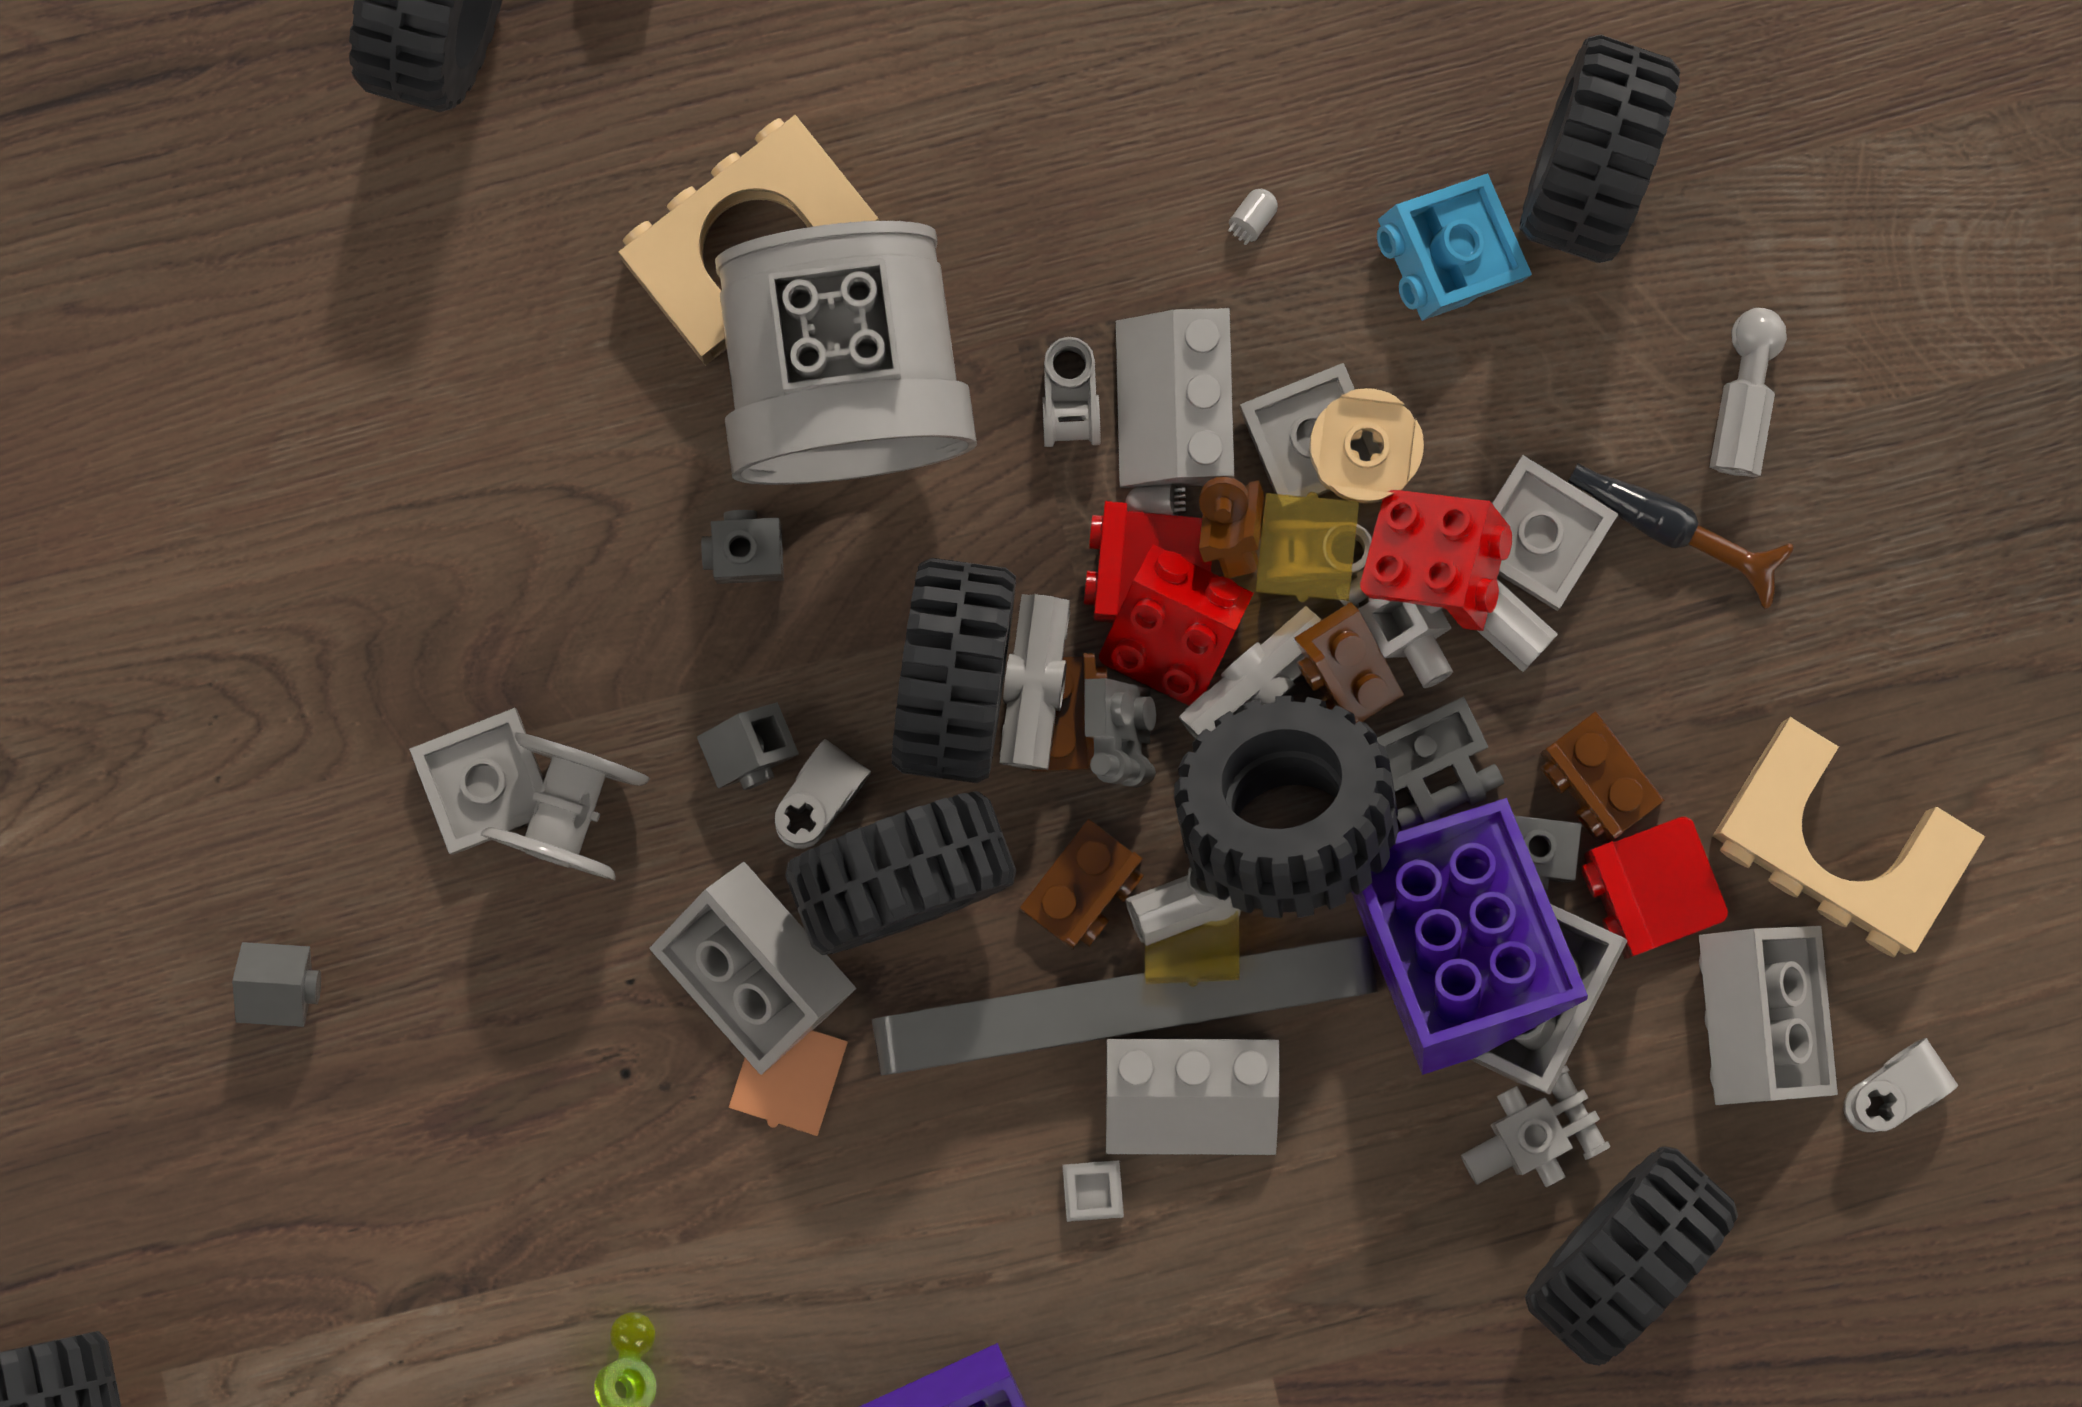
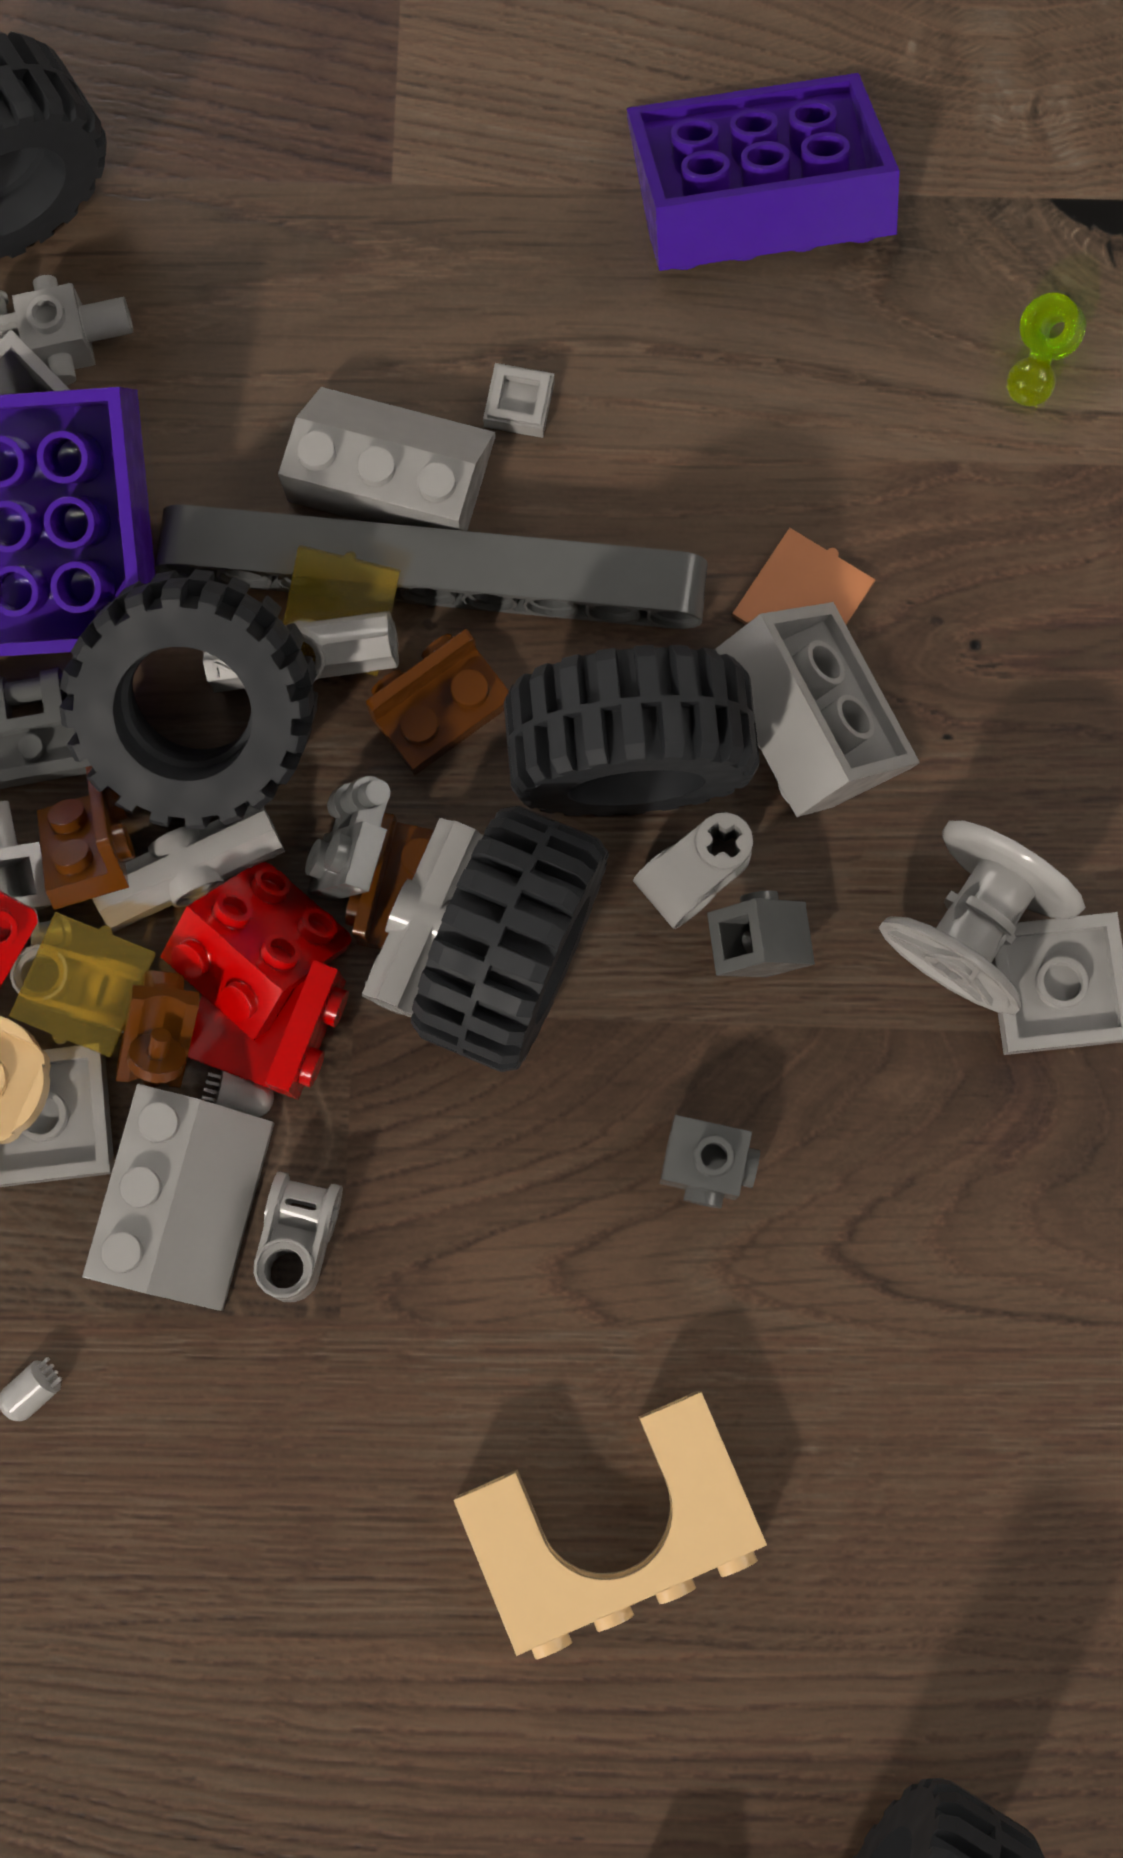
camera: 160 degrees left, 5 degrees down
(840, 355) = (540, 1331): light grey cylinder -> none

